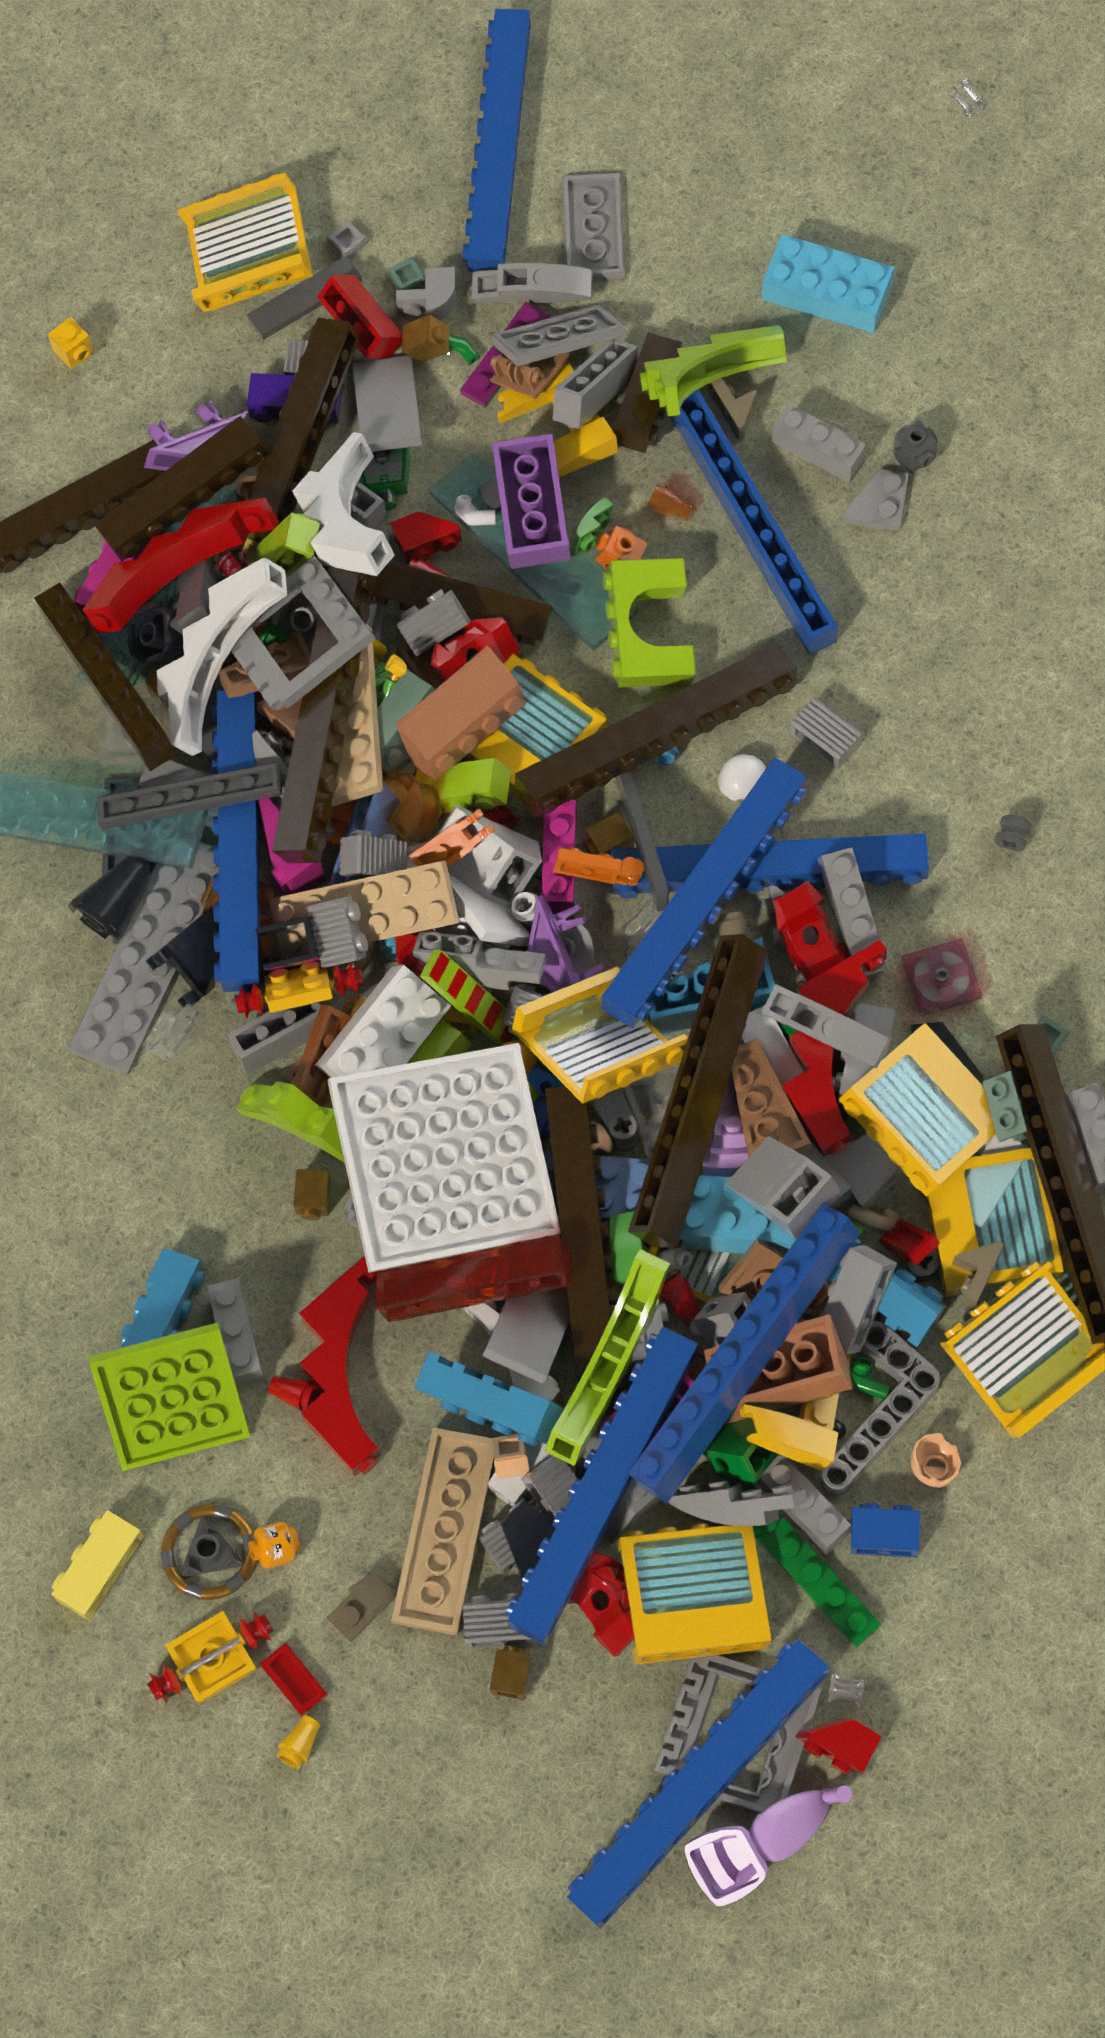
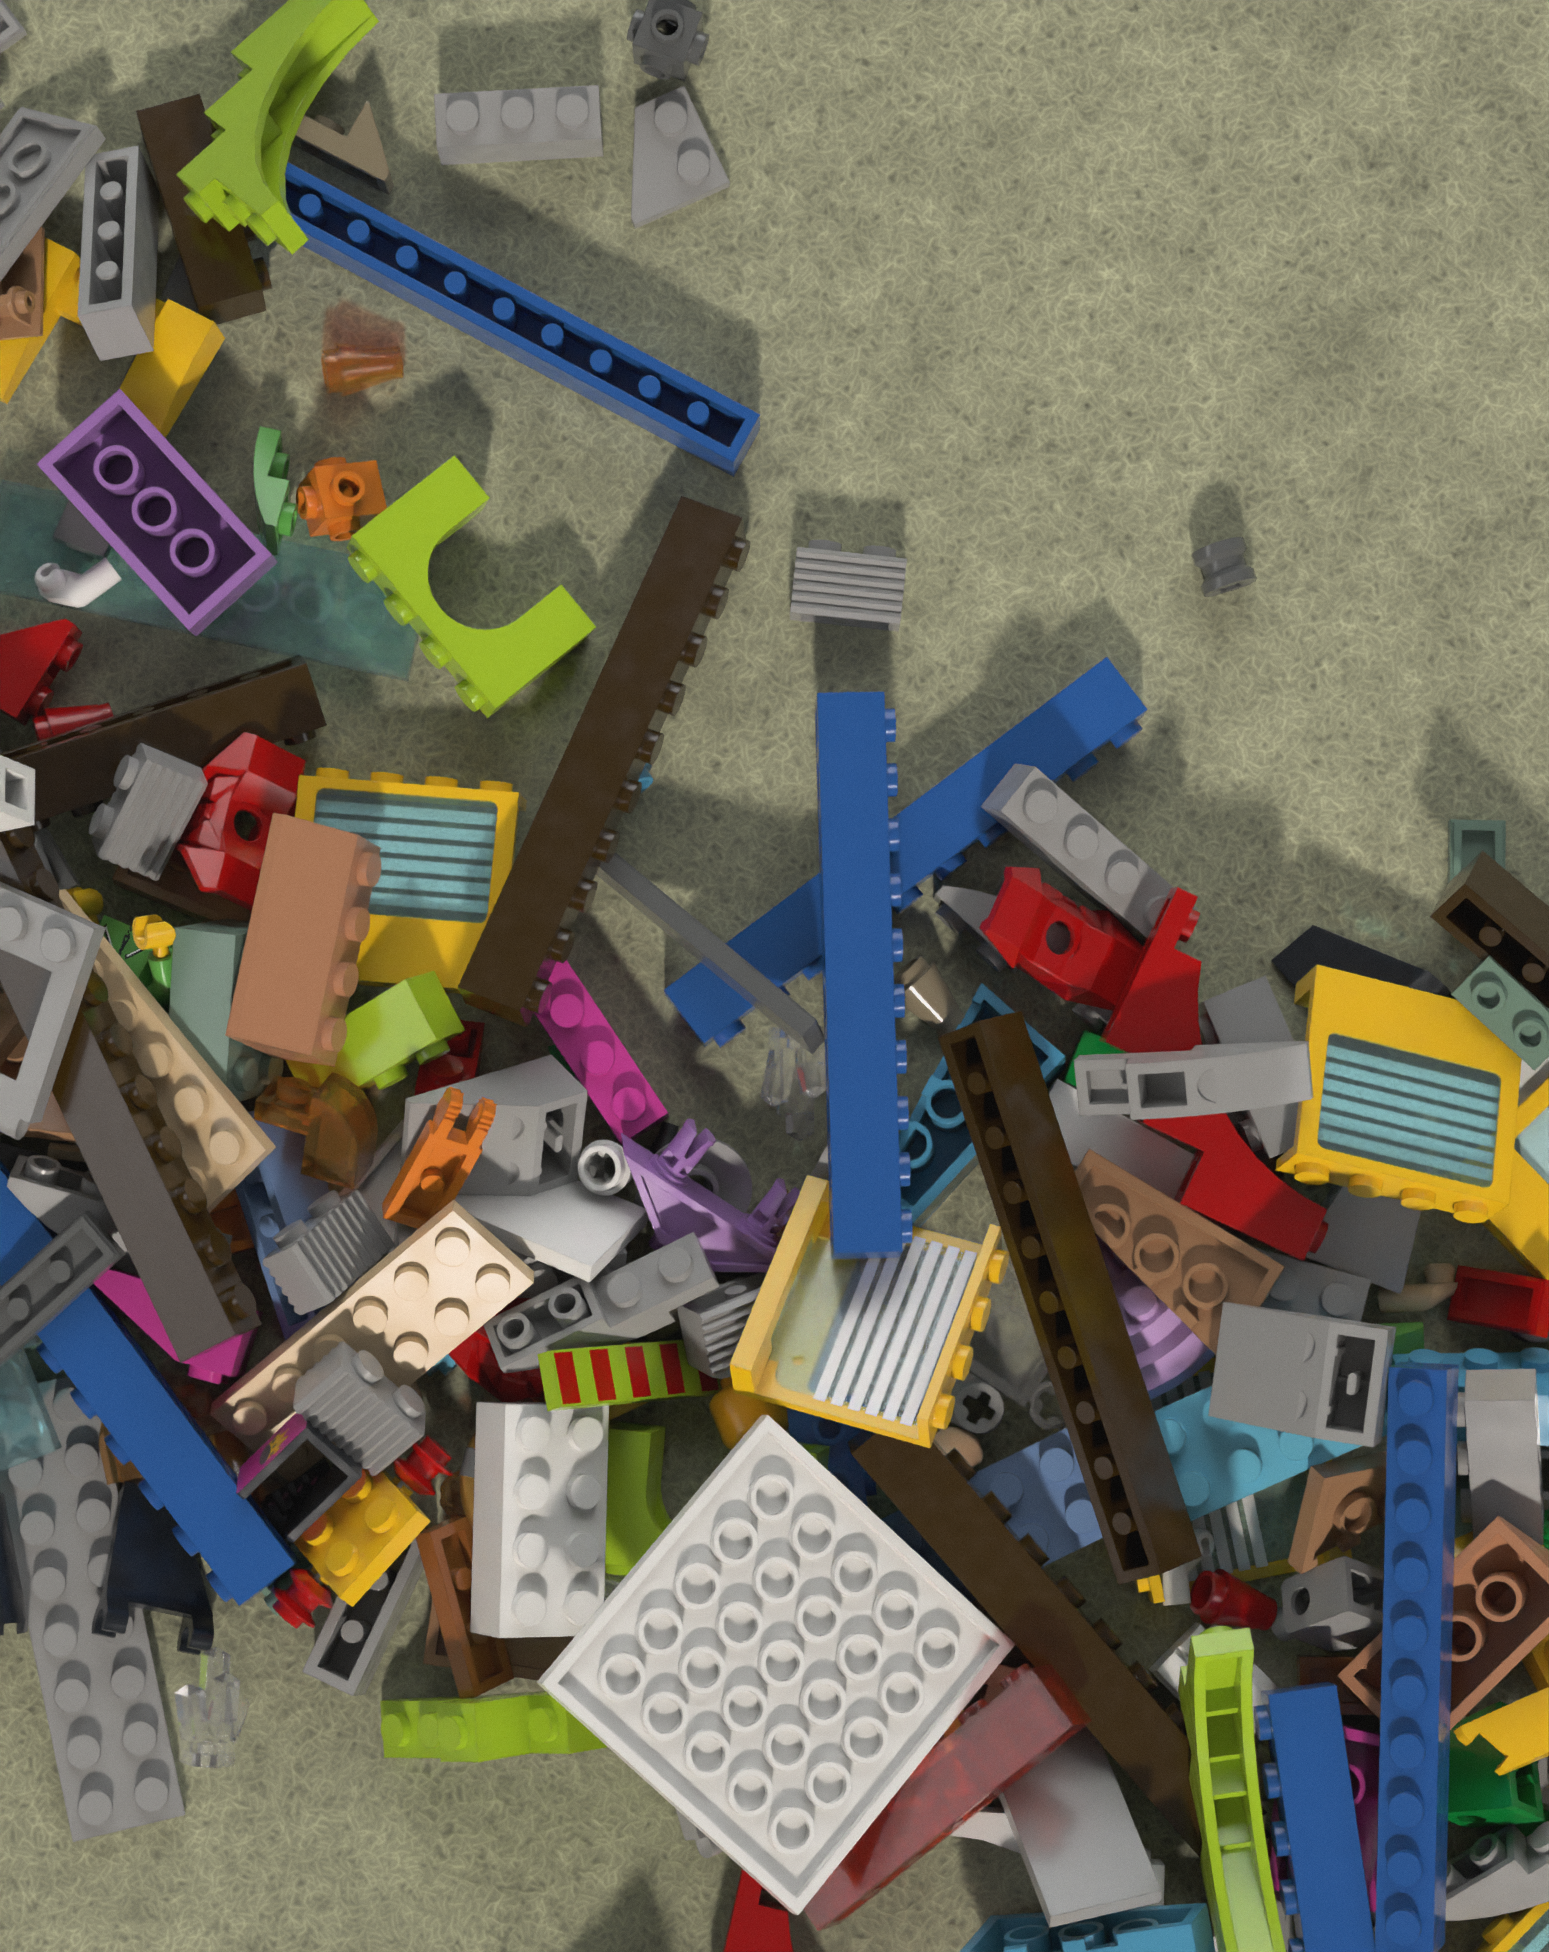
camera: 45 degrees left, 15 degrees up
(312, 1193) = (595, 1813): pearl gold brick -> none
(598, 867) = (676, 1038): orange hinge -> none
(608, 835) = (643, 970): pearl gold brick -> none
(623, 1246) = (1133, 1609): bright green slope -> none
(740, 776) = (770, 738): white hair -> none
(941, 977) = (1269, 859): clear pink piece -> none

